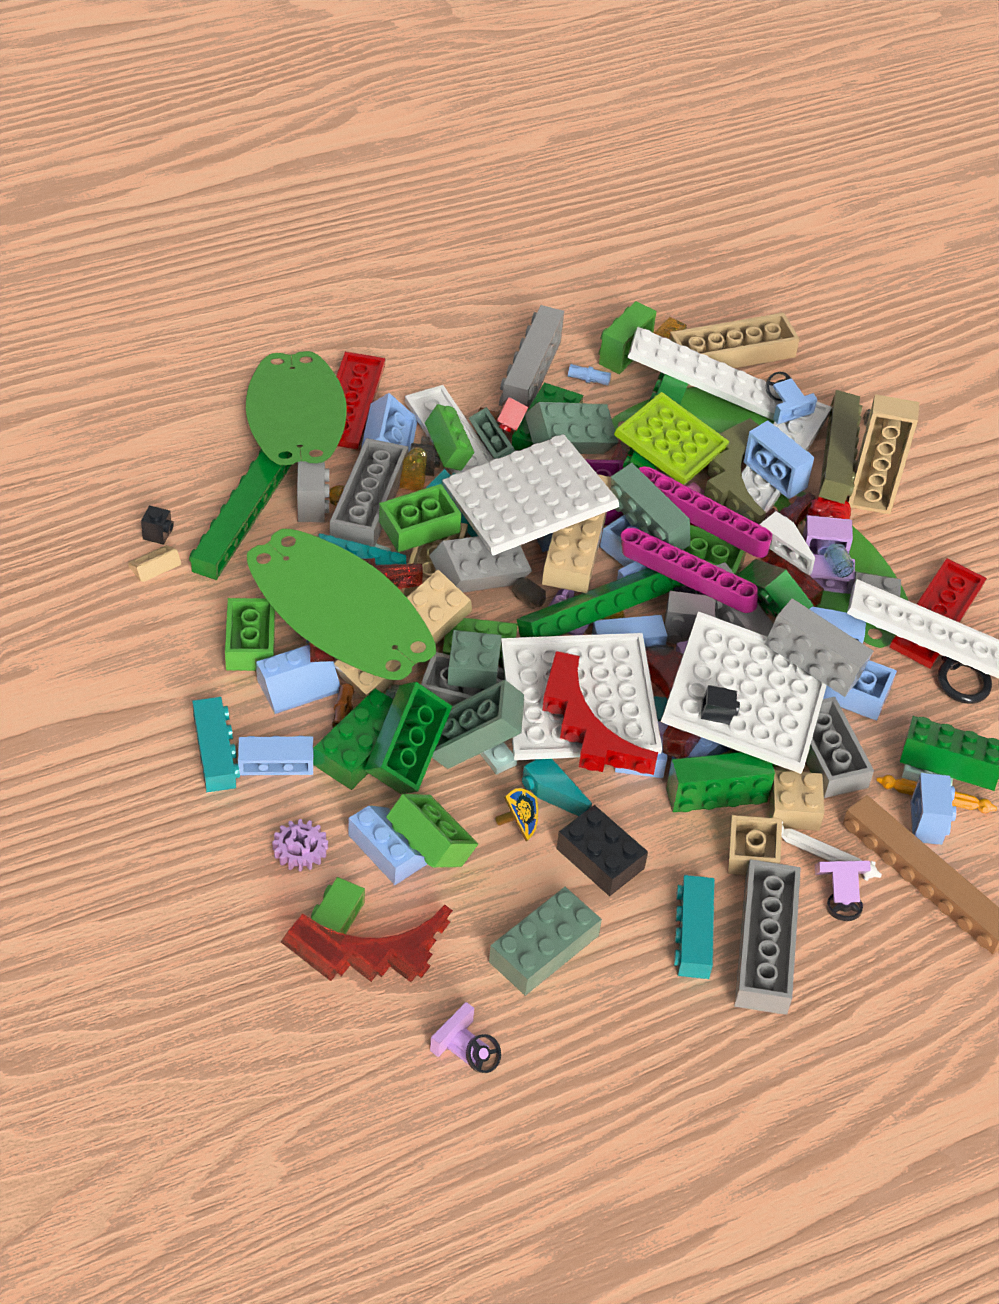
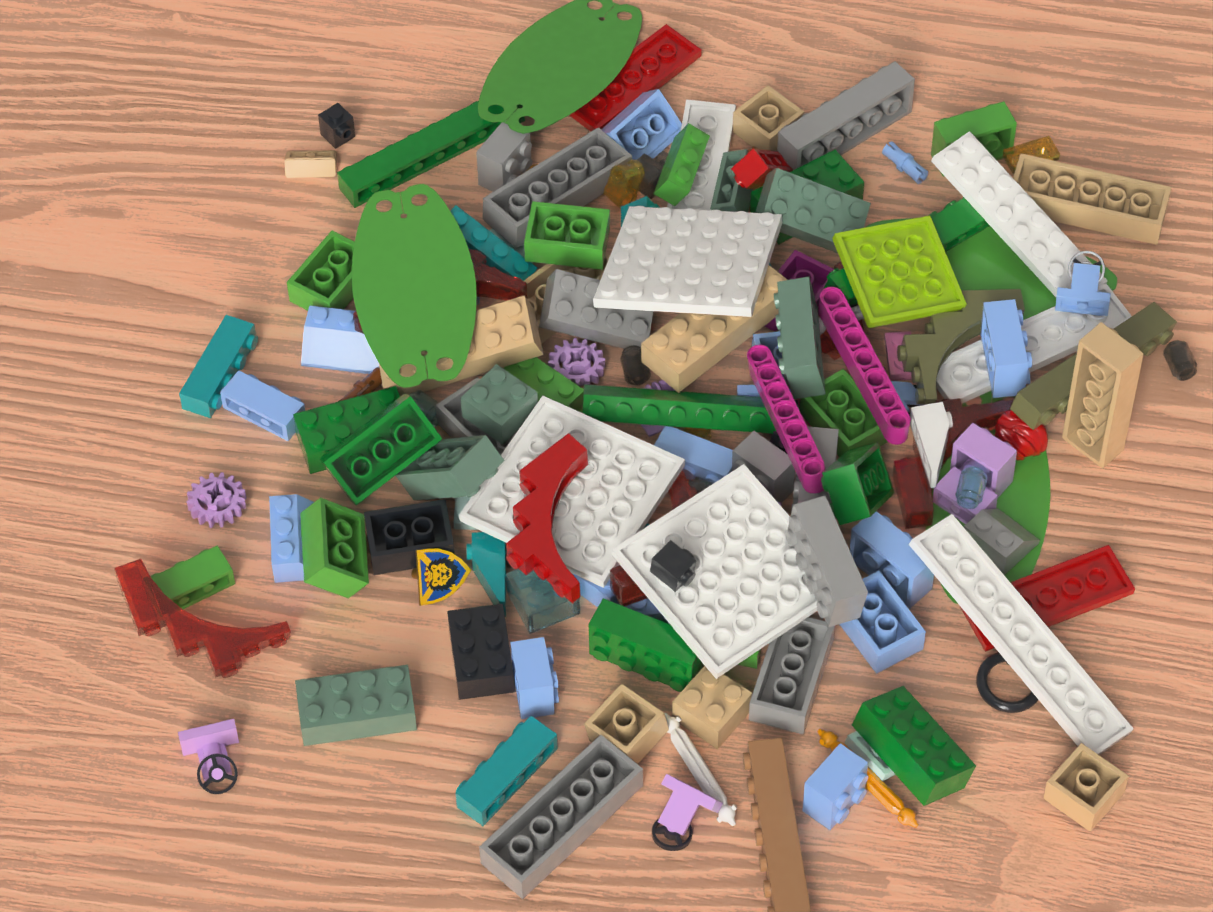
camera: 40 degrees right, 5 degrees up
(477, 385) = (763, 118): none -> tan brick
(478, 792) = (401, 530): none -> black brick
(497, 607) = (577, 363): none -> lavender gear
(610, 789) = (537, 601): none -> clear light blue brick
(666, 846) = (534, 677): none -> light blue brick

